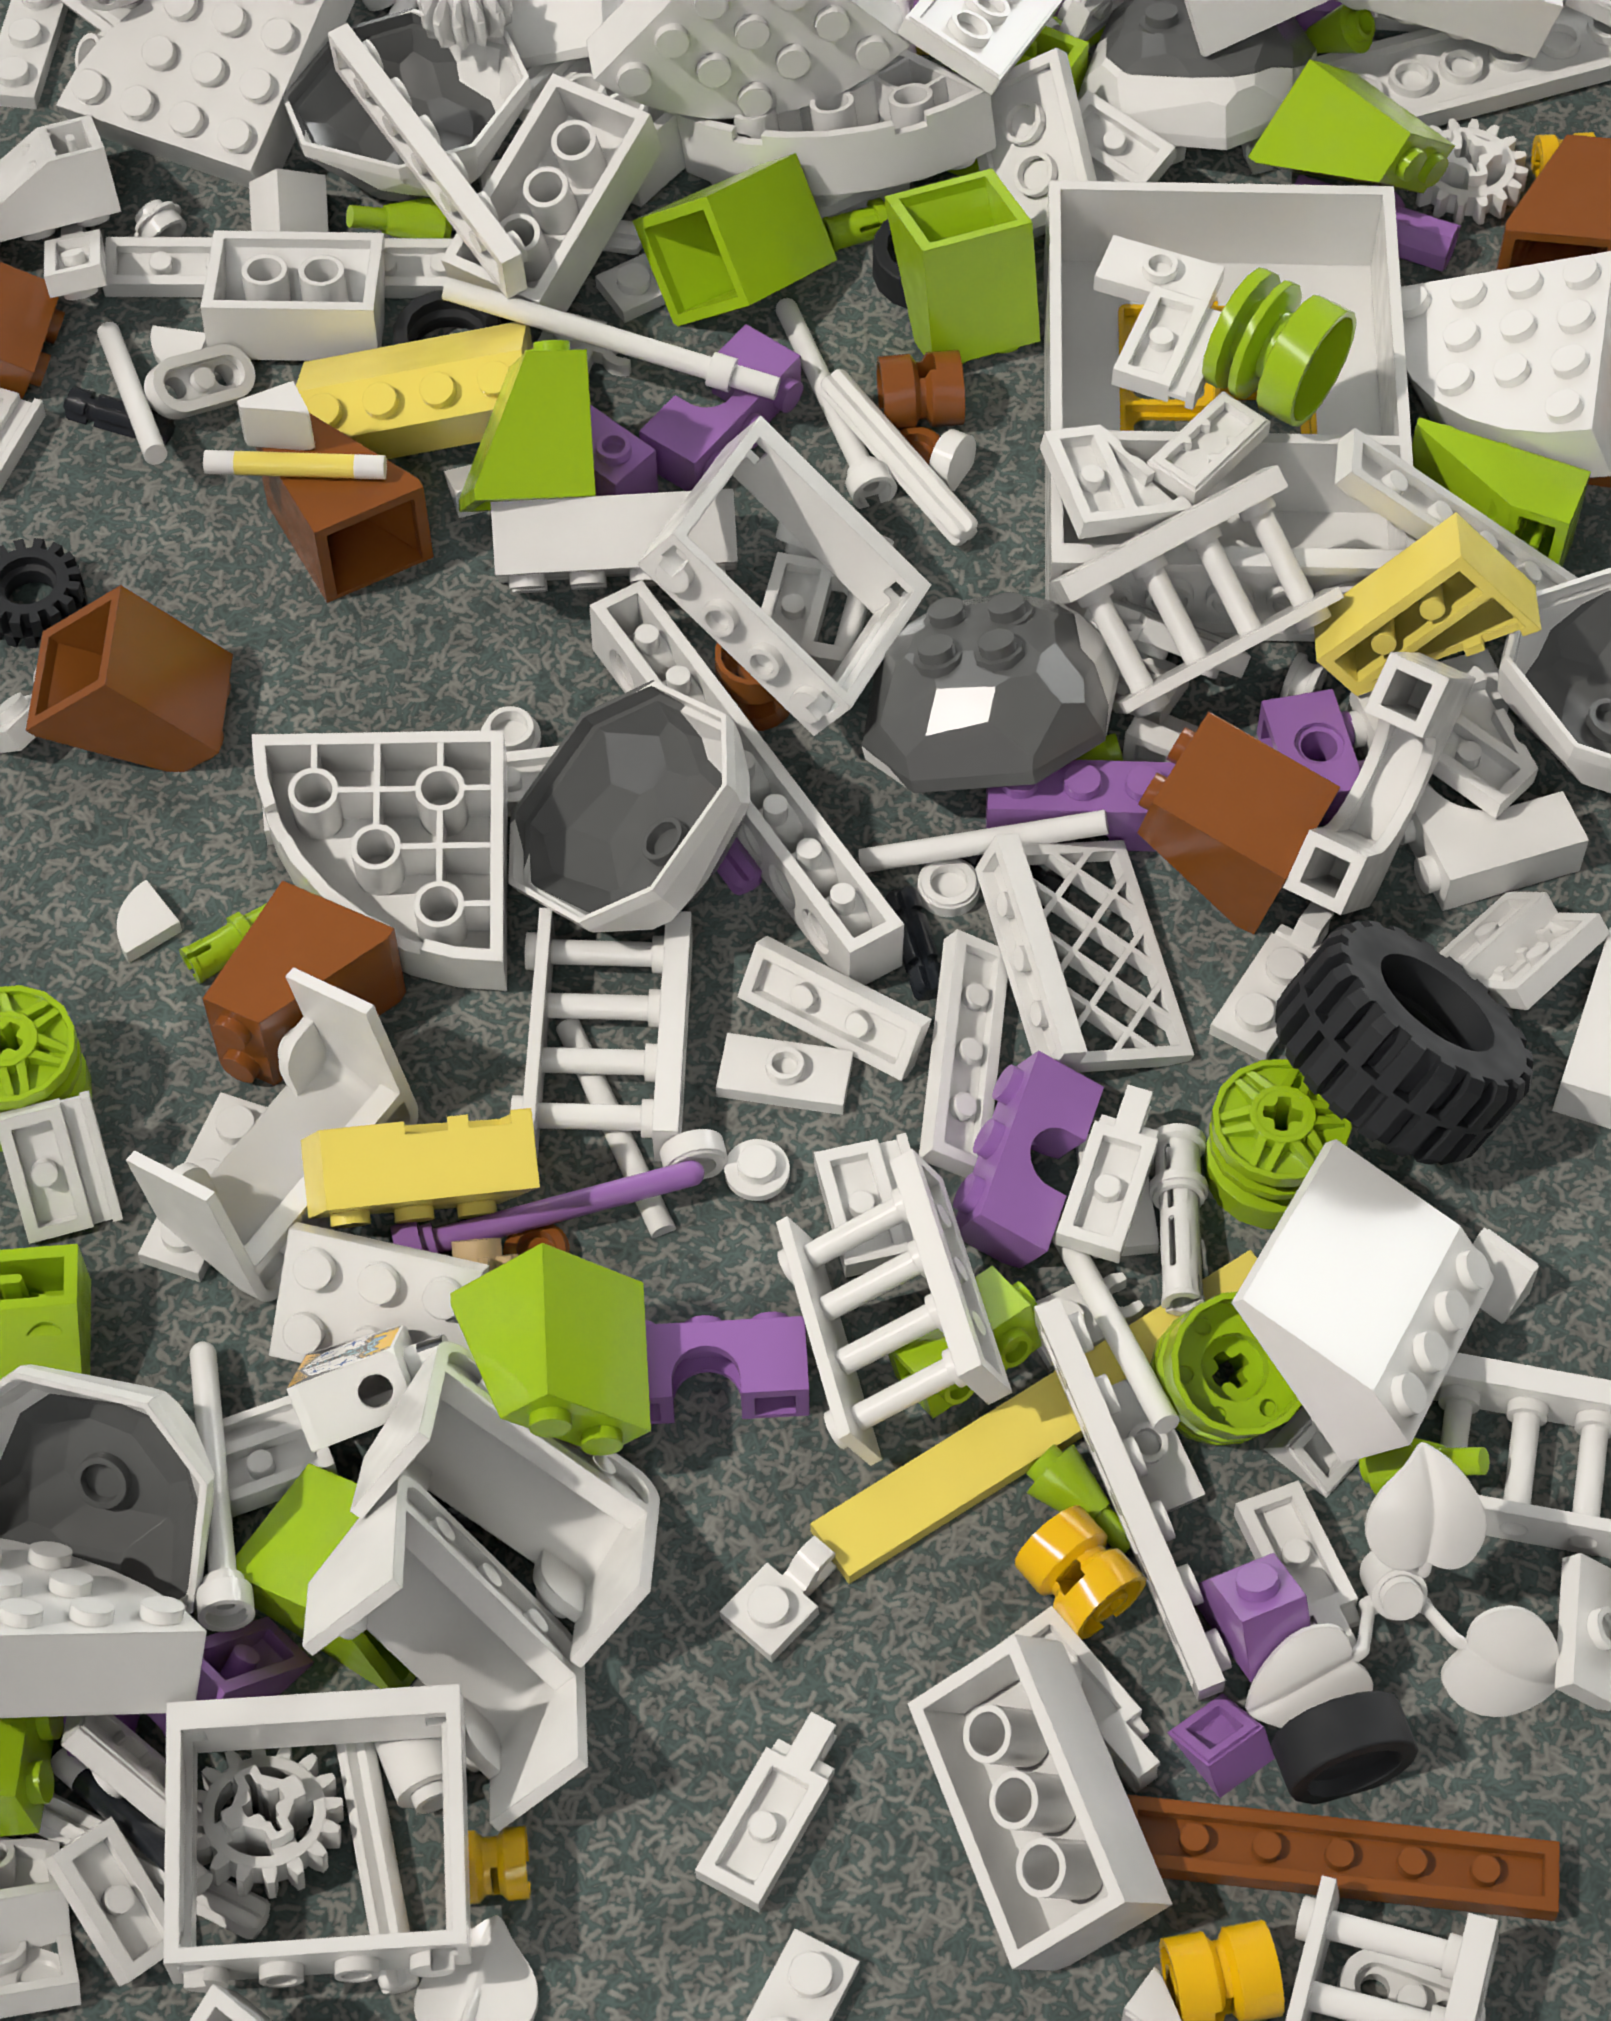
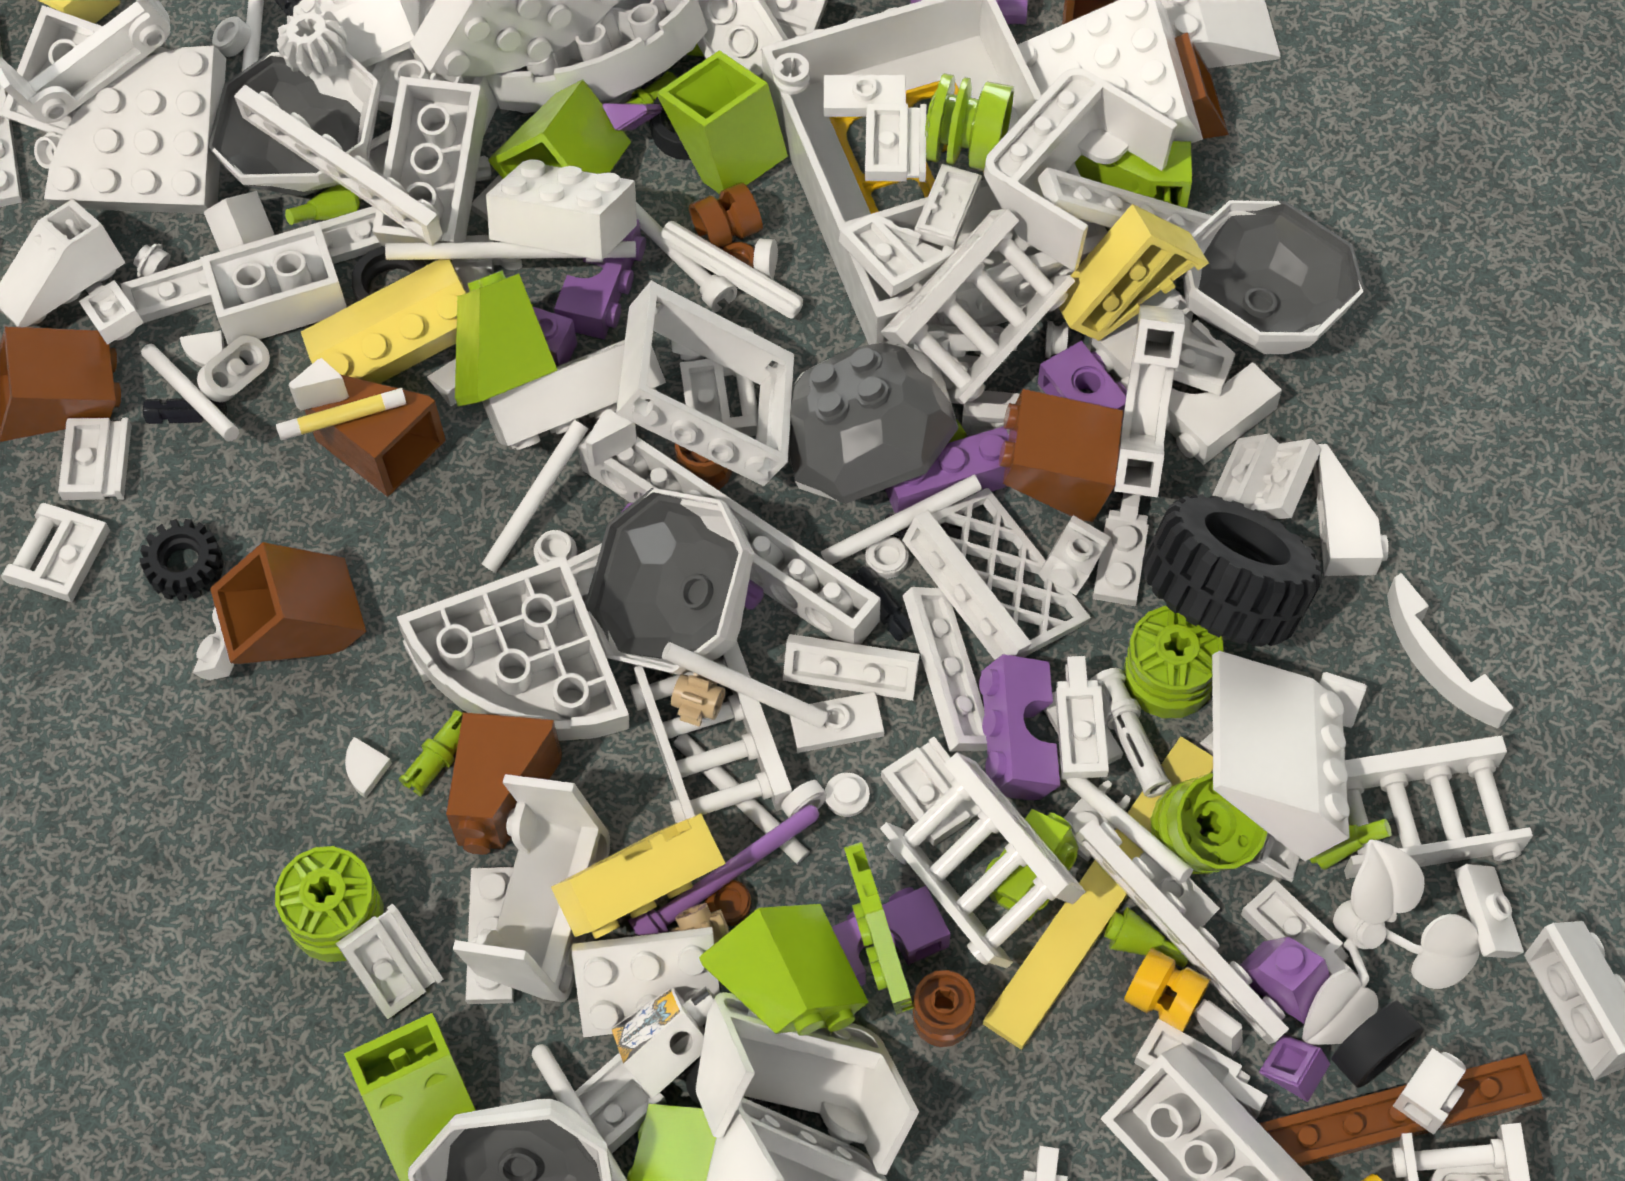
camera: 20 degrees left, 5 degrees up
(510, 653) = (535, 496): none -> white bar
(603, 969) = (697, 698): none -> tan gear
(628, 604) = (609, 437): none -> white slope
(669, 972) = (744, 685): none -> white bar
(696, 304) = (562, 209): none -> white brick
(700, 1336) = (875, 931): none -> lime wing
(755, 1502) = (943, 1008): none -> dark orange wheel
(777, 1606) = (984, 1083): white plate -> none
(846, 222) = (630, 115): none -> medium lavender slope
(1075, 207) = (792, 62): none -> white bush
(1134, 1648) = (1220, 1026): none -> white tile
(1202, 963) = (1074, 555): none -> white brick
(1394, 1834) = (1432, 1089): none -> white brick
(1400, 390) = (1070, 120): none -> white windscreen

